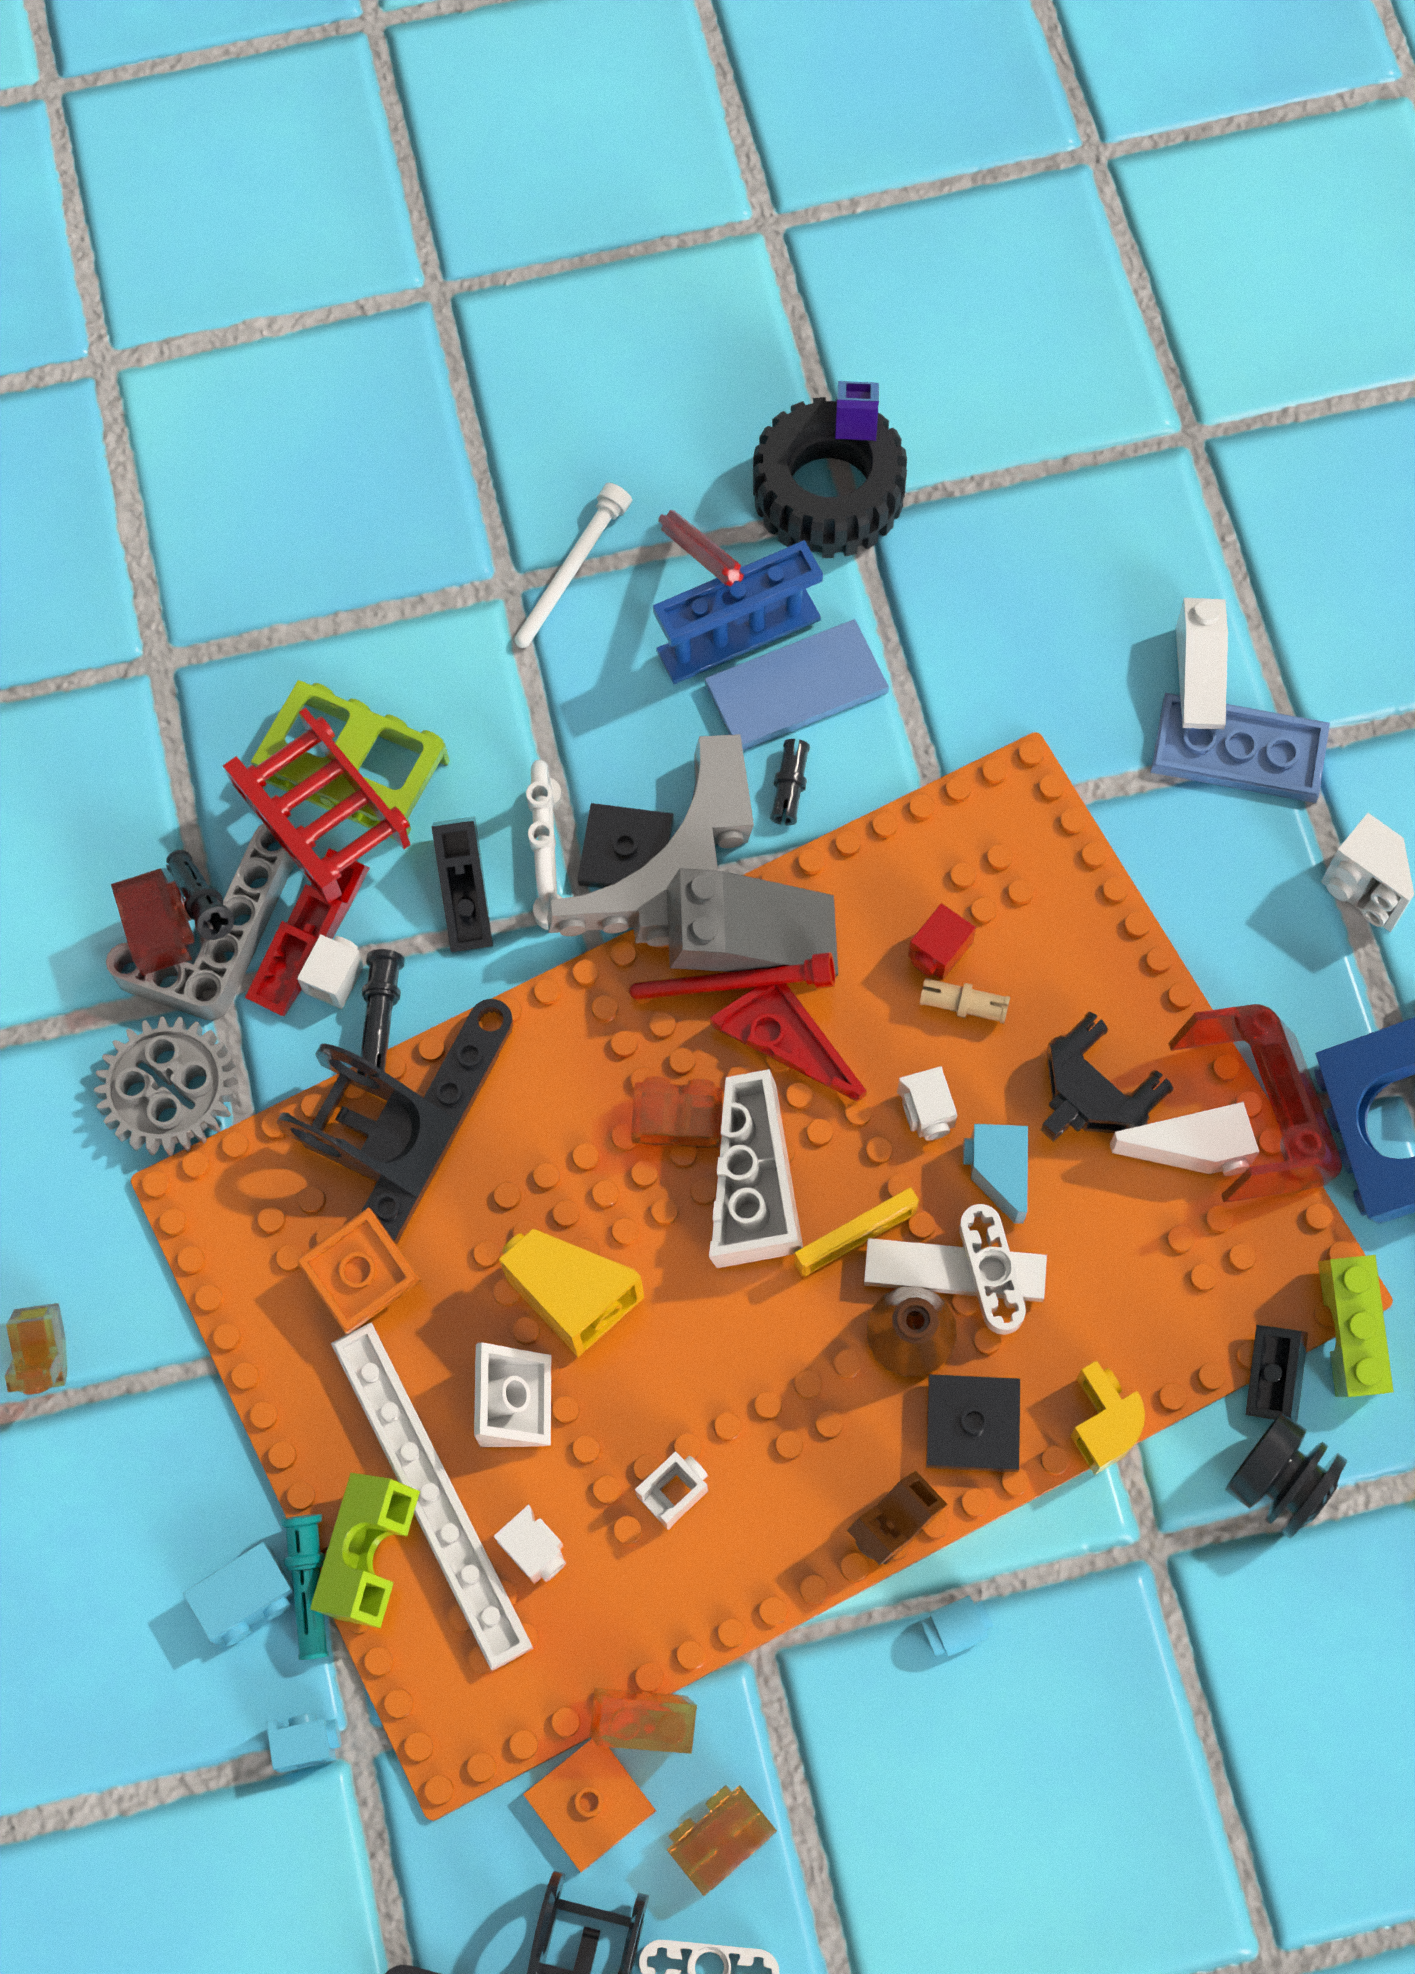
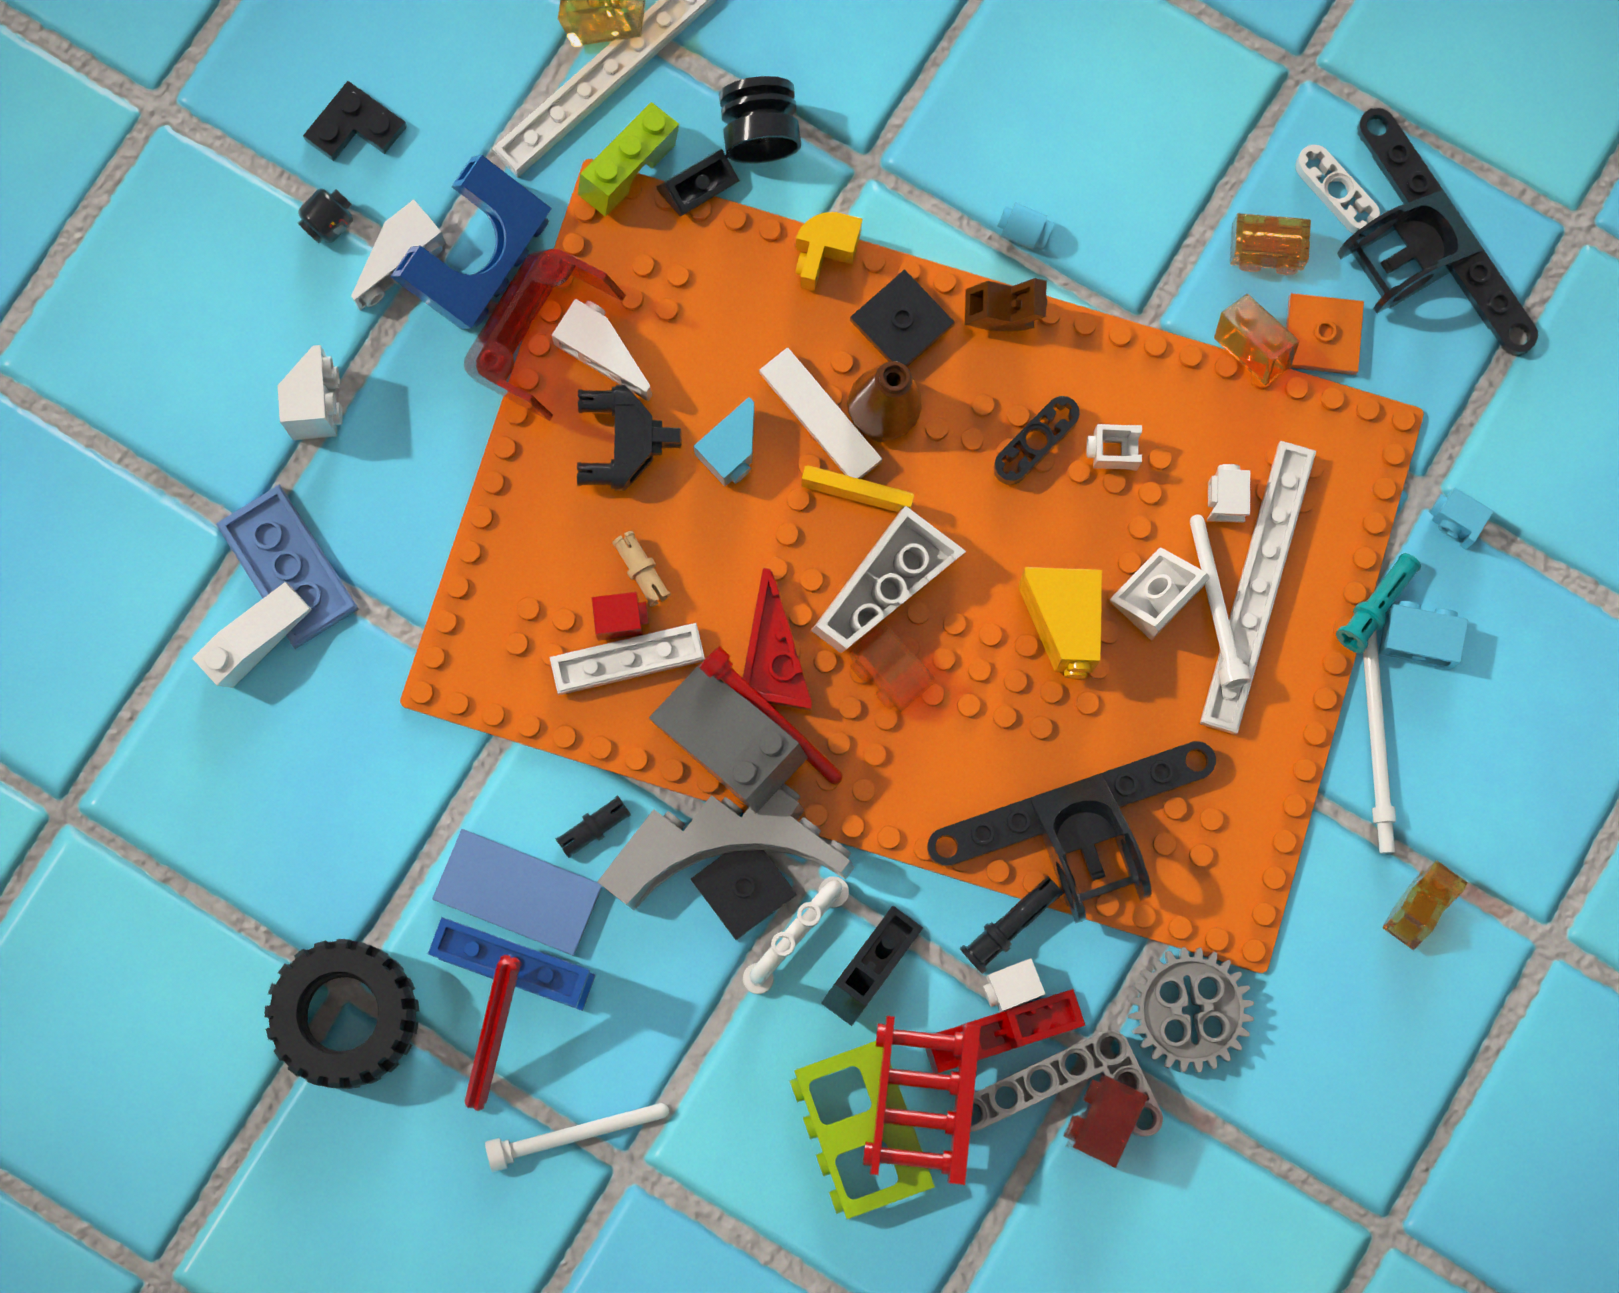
camera: 140 degrees left, 10 degrees up
(142, 1405) = (1383, 814): none -> white bar
(201, 901) = (1060, 1106): black pin -> none
(358, 1270) = (1183, 755): orange plate -> none
(368, 1514) = (1358, 571): lime arch -> none
(383, 1387) = (1233, 671): none -> white piece
(737, 1398) = (1048, 414): none -> black beam
(857, 410) = (279, 1028): dark purple slope -> none
(898, 923) = (627, 659): none -> white tile
(928, 1103) = (733, 523): white window -> none
(988, 1304) = (779, 407): white beam -> none

